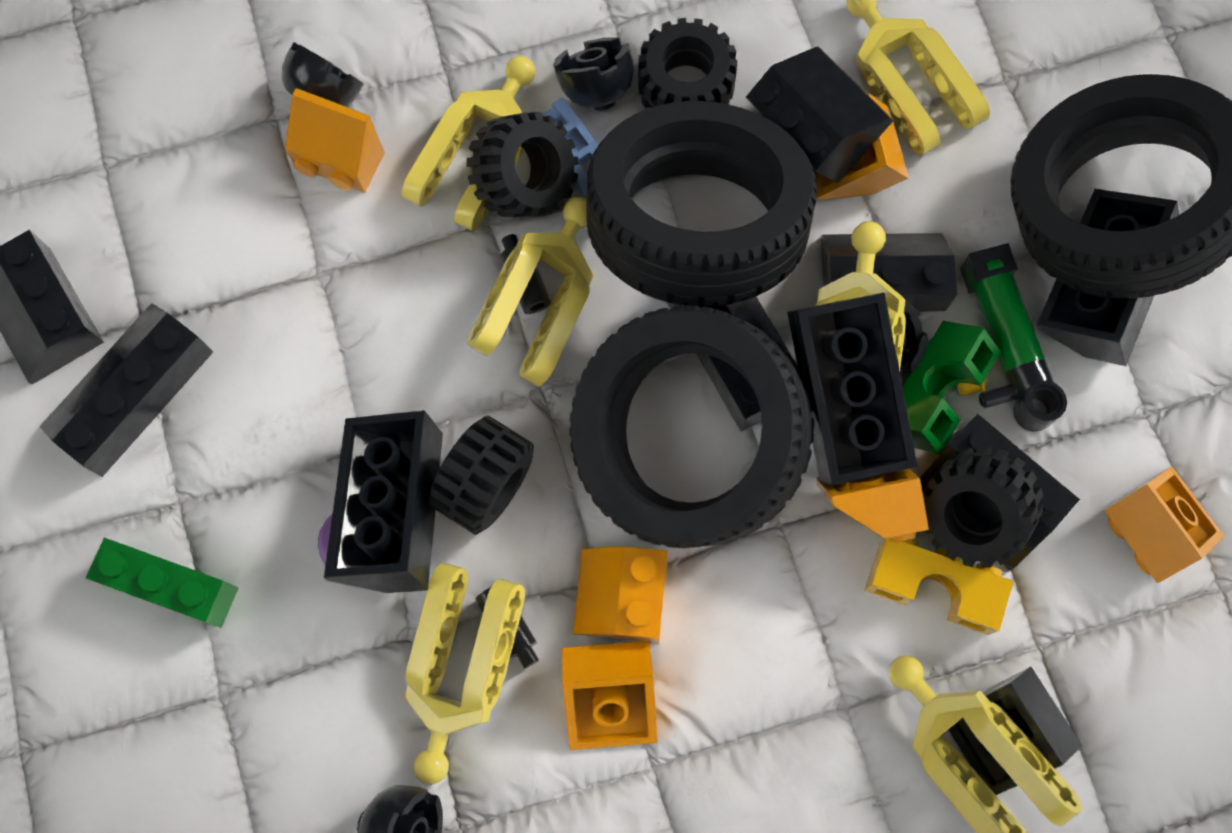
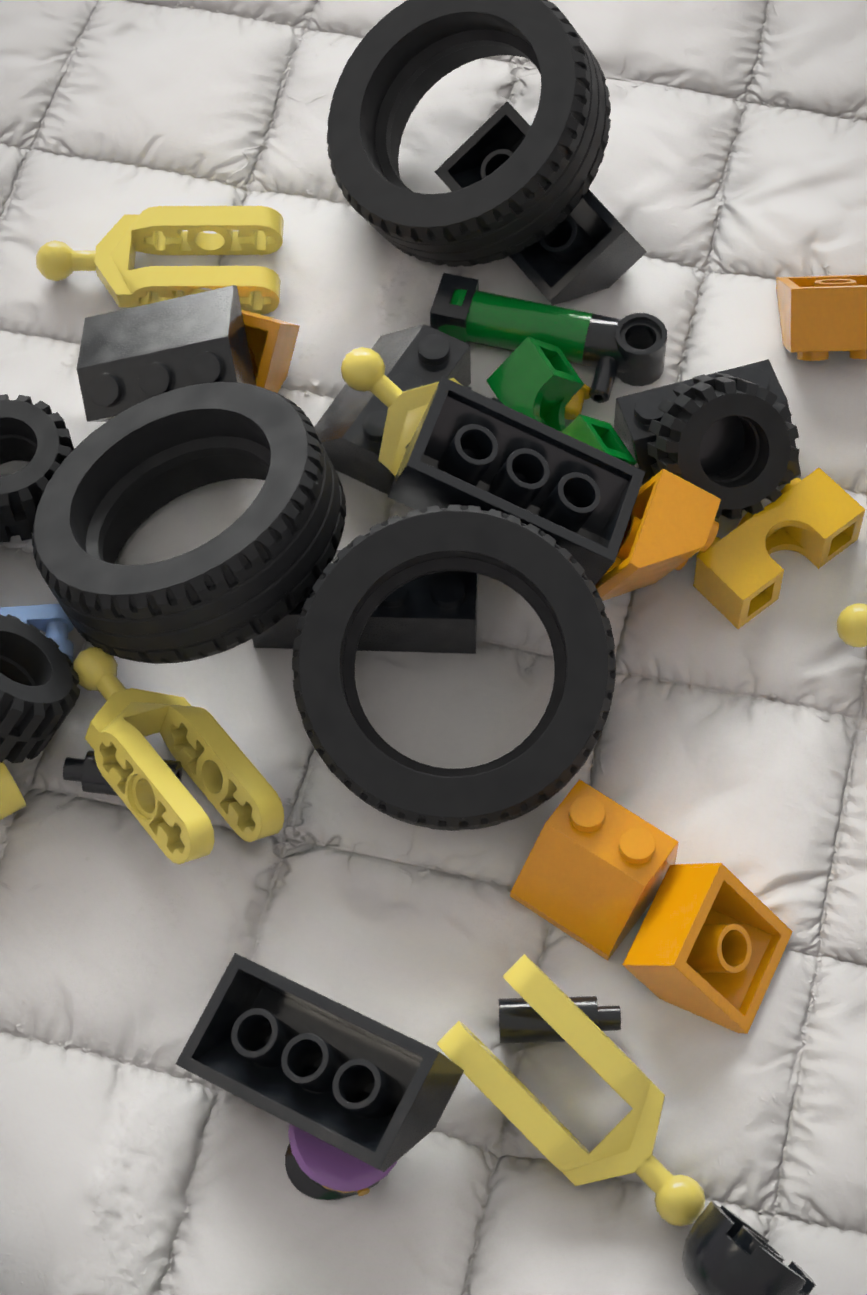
camera: 60 degrees left, 15 degrees down
(481, 474) = (359, 932): black tyre -> none

